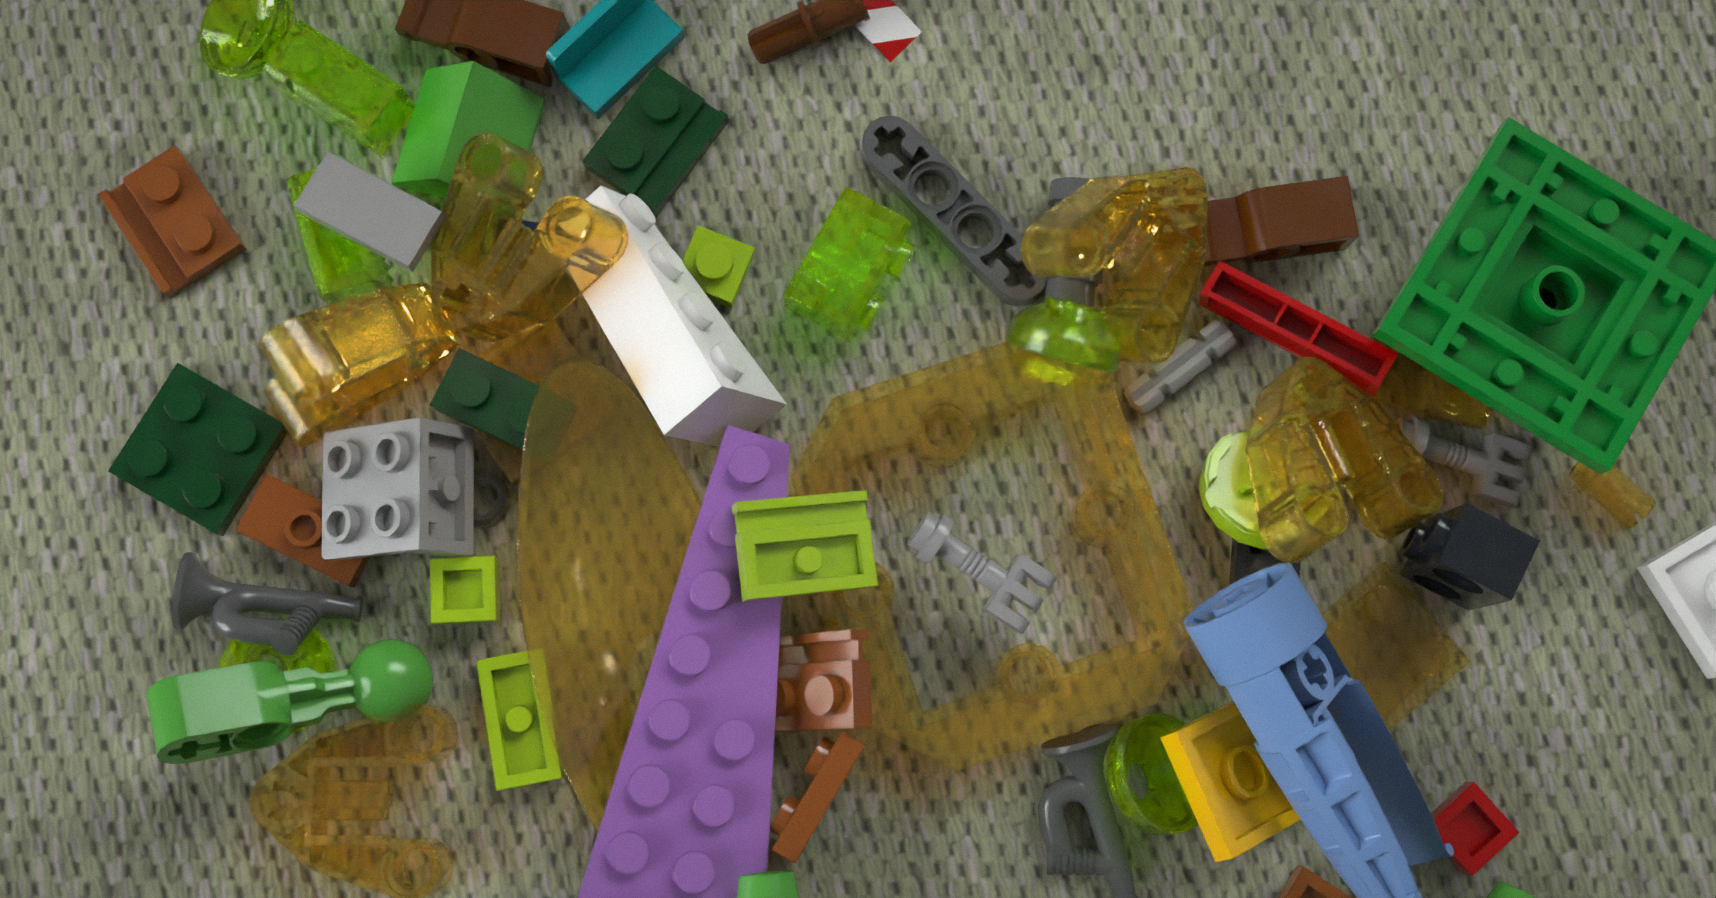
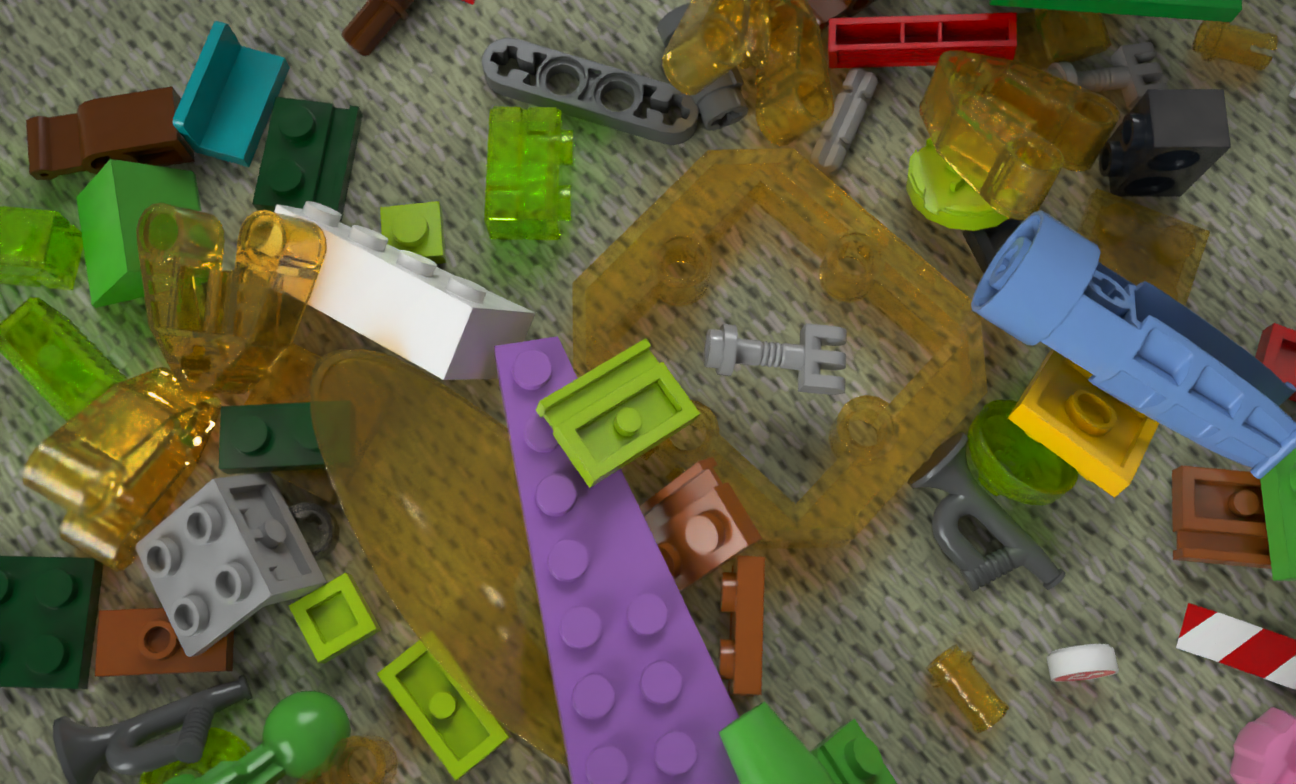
camera: 25 degrees left, 5 degrees down
(369, 211) = (76, 324): light grey tile -> none
(1066, 333) = (741, 125): clear neon green piece -> none

